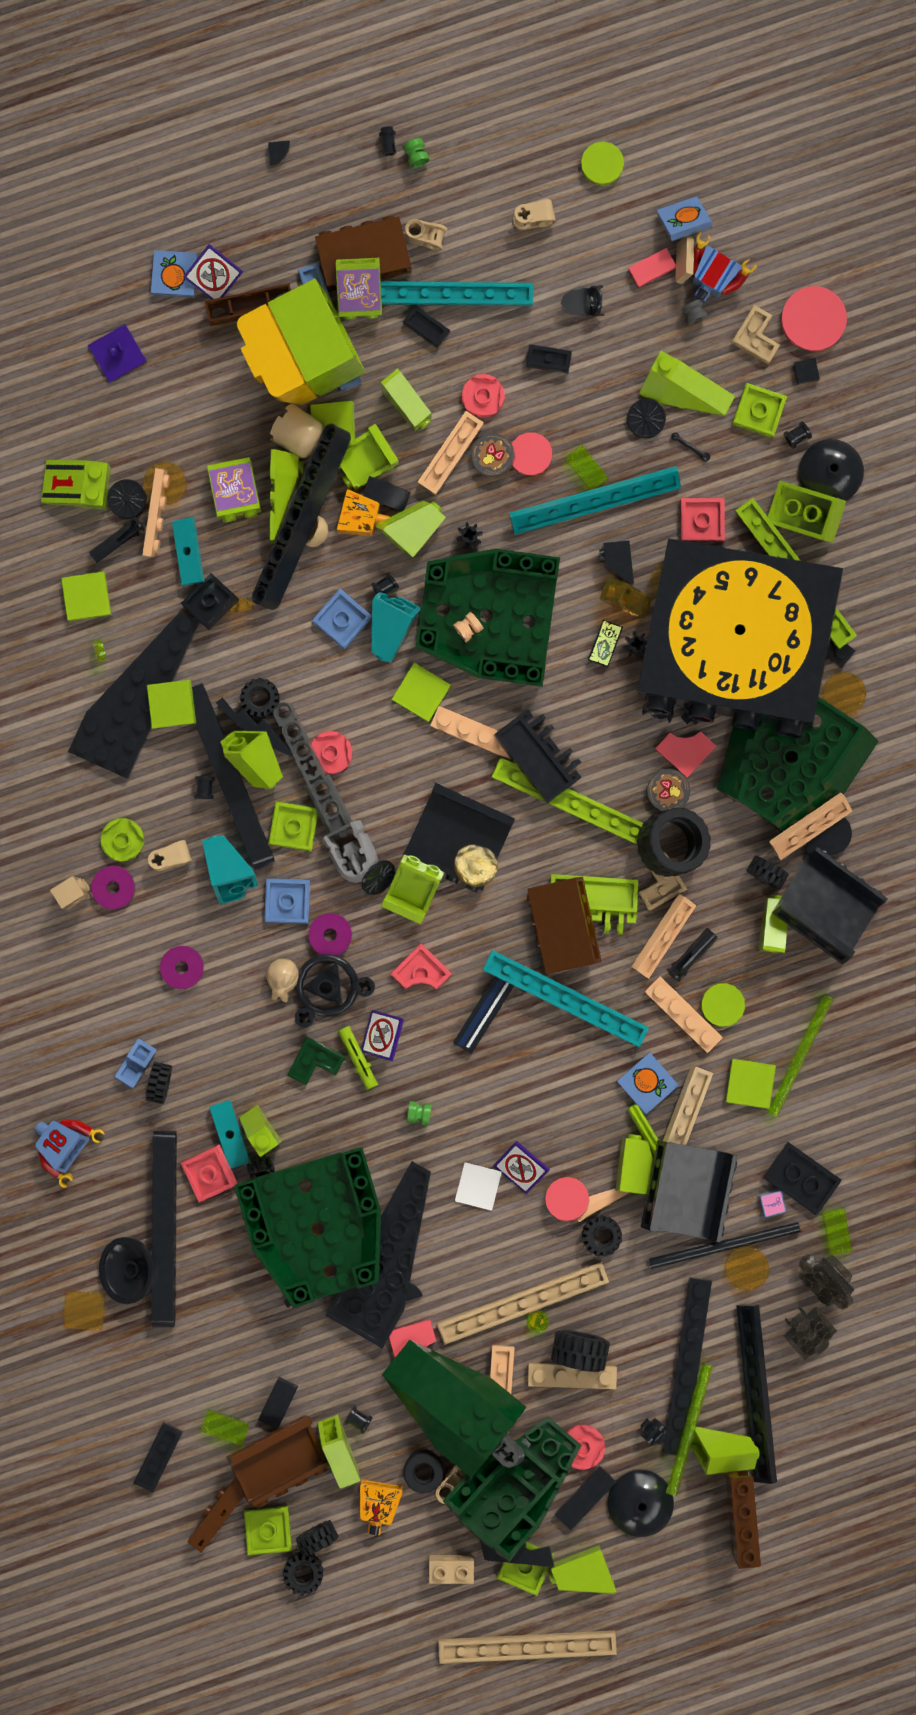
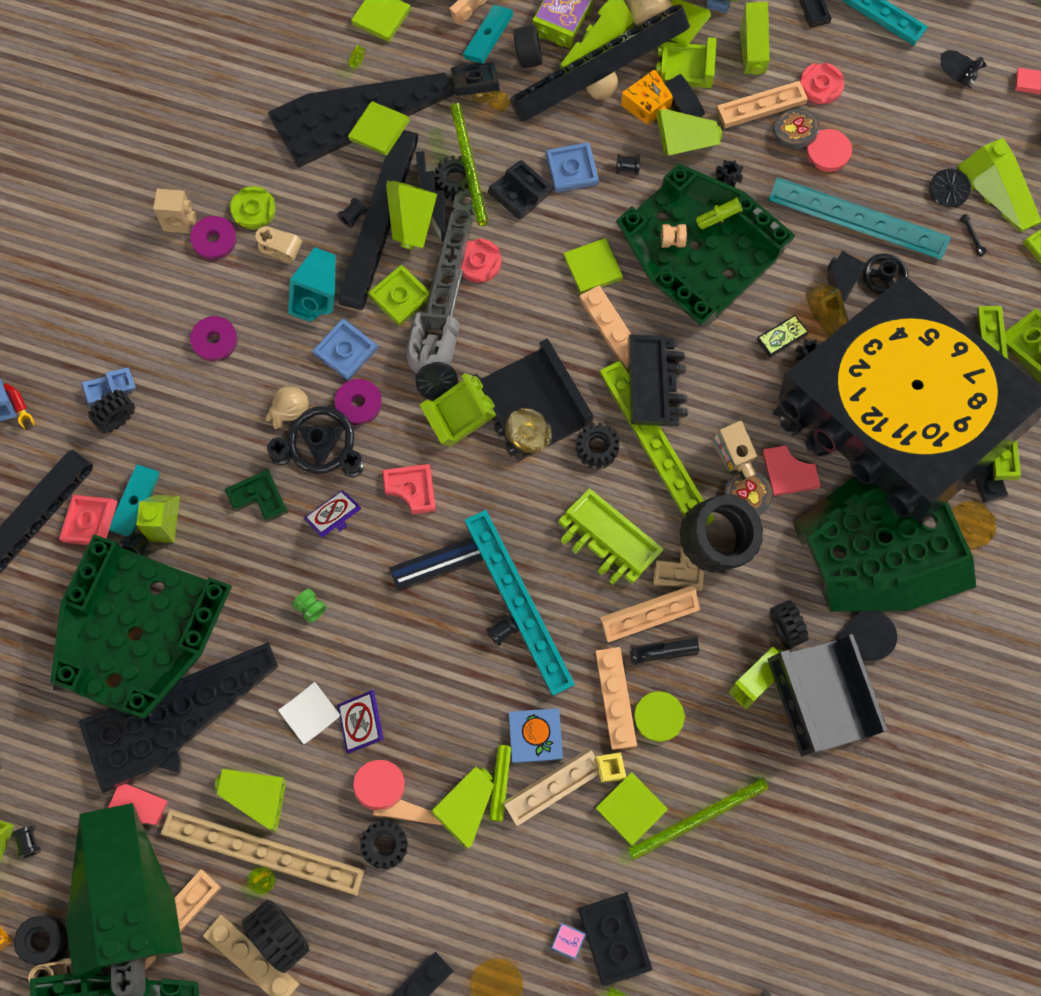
camera: 40 degrees right, 15 degrees down
(230, 541) = (528, 46): none -> black tyre
(266, 682) = (469, 164): none -> clear neon green piece
(317, 669) = (520, 189): none -> black slope
(370, 1081) = (289, 545): lime pin -> none
(391, 624) = (608, 194): teal slope -> none
(487, 1271) = (253, 794): none -> lime slope
(490, 582) = (719, 213): none -> lime axle
(523, 846) = (603, 433): none -> black tyre
(548, 358) = (899, 90): black plate -> none
(564, 925) = (567, 535): reddish brown panel -> none
(568, 1027) = (501, 630): none -> black bush
(586, 468) = (869, 189): clear neon green tile -> none
(629, 763) = (733, 442): none -> tan torso
(646, 515) = (889, 264): none -> black piece
(689, 1190) = (496, 863): panel -> none
(702, 520) = (947, 291): coral tile -> none
(716, 1067) = (611, 767): none -> light yellow slope
(724, 1245) = (493, 946): black piece -> none
(810, 826) = (859, 613): light nougat plate -> none

